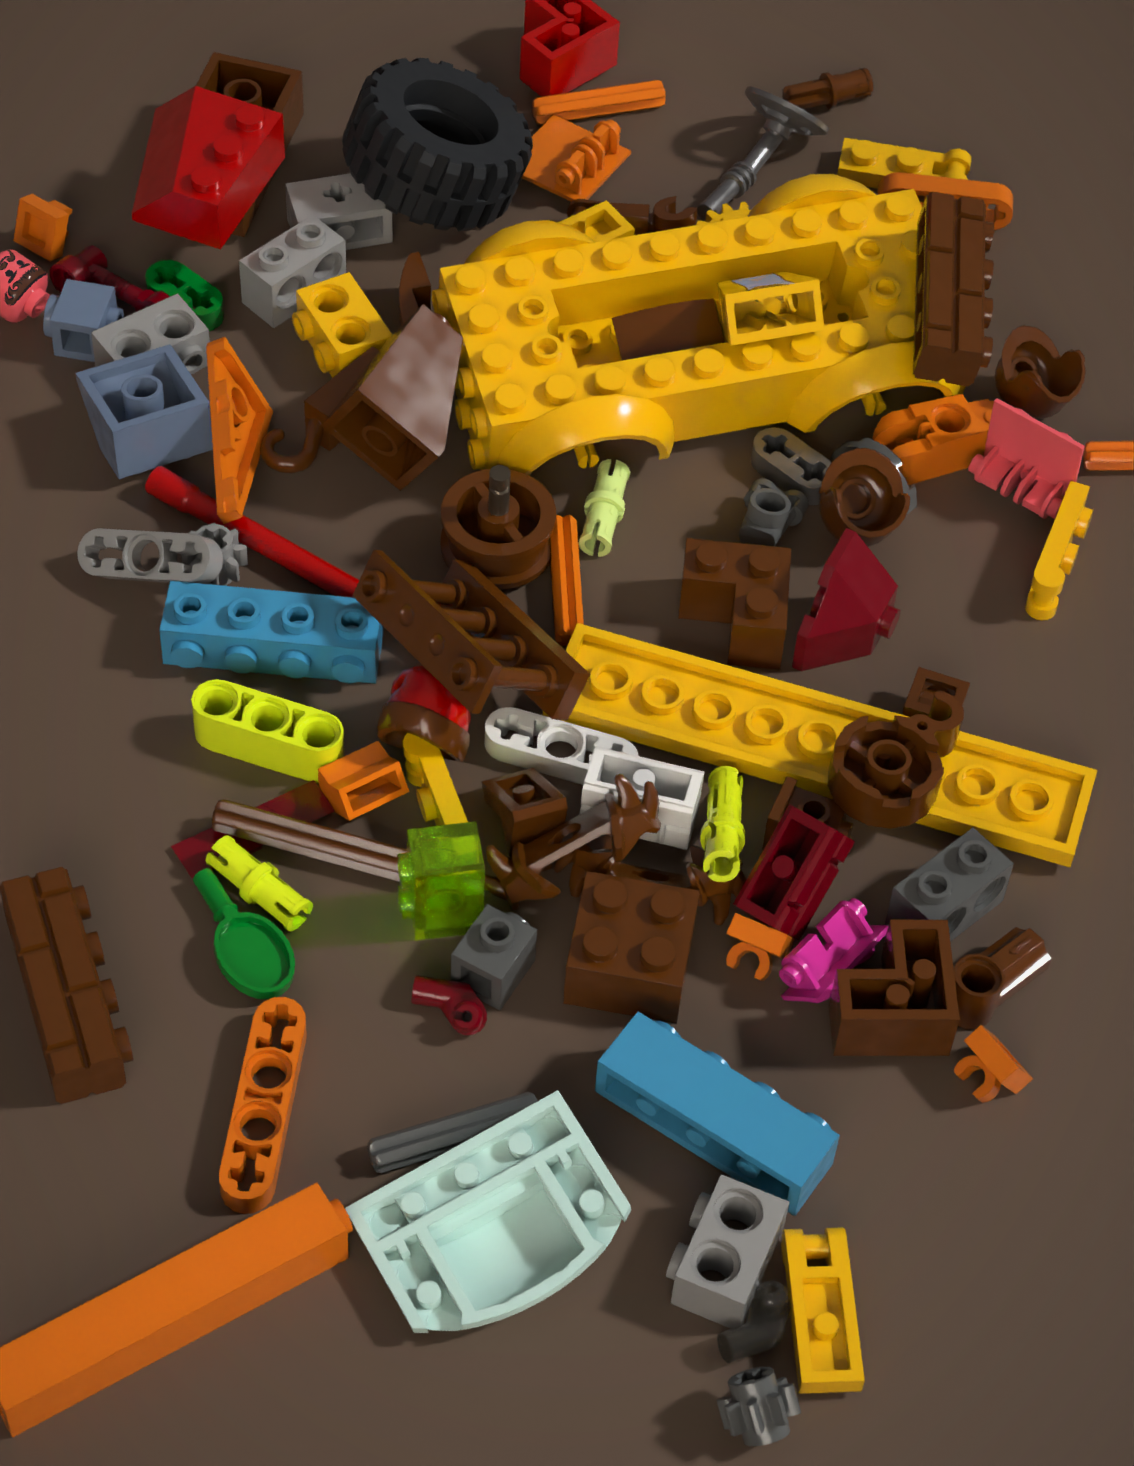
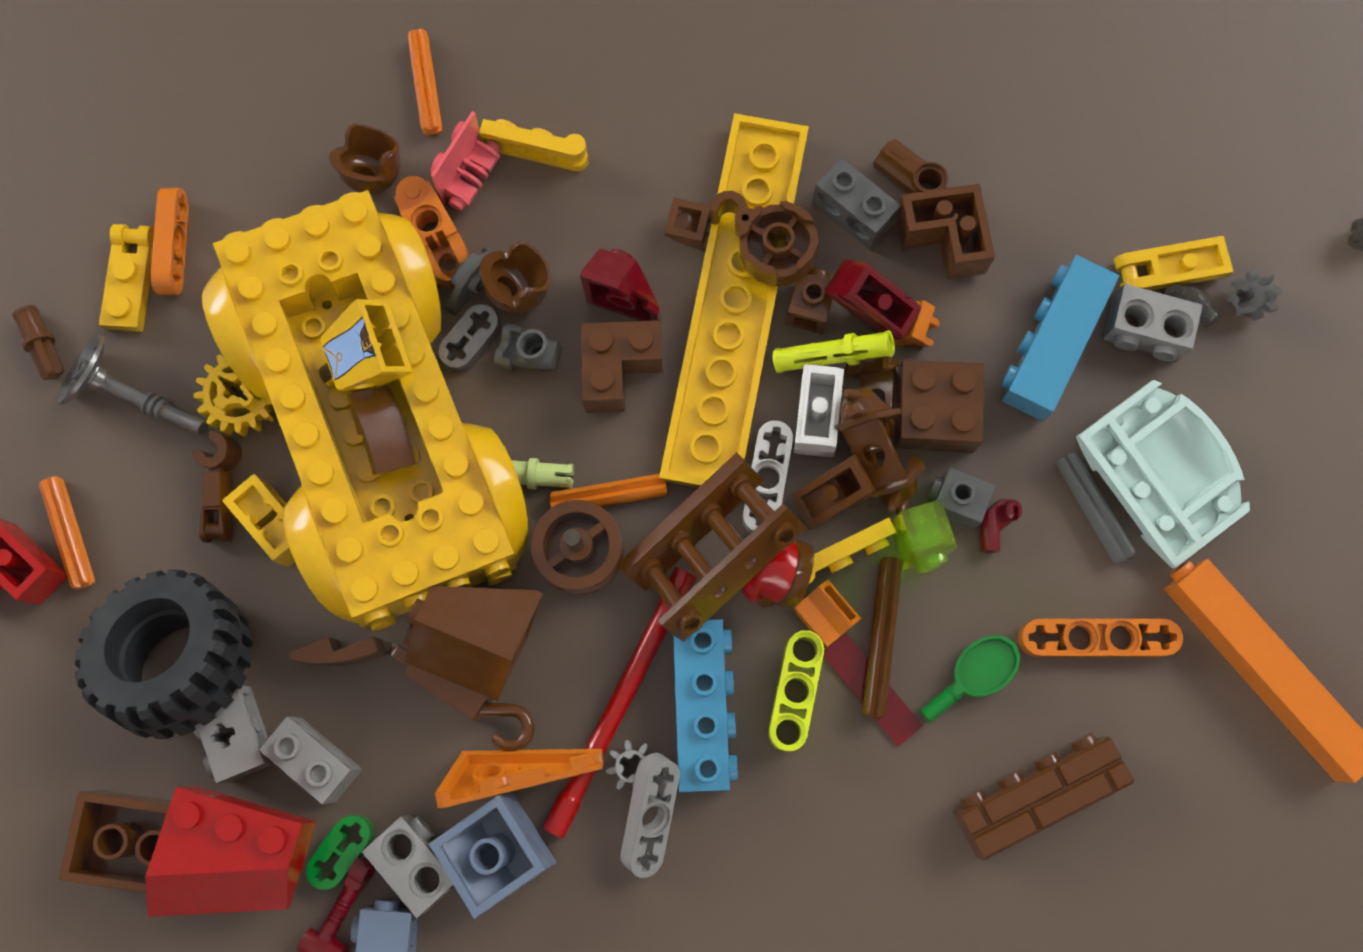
camera: 90 degrees left, 25 degrees up
(259, 883) = (927, 673): neon yellow pin -> none
(338, 322) = (369, 697): yellow brick -> none
(574, 159) = (139, 544): orange hinge -> none
(849, 942) = (918, 275): dark pink hinge -> none
(952, 289) = (336, 203): reddish brown brick -> none
(995, 1061) = (978, 168): orange tile -> none

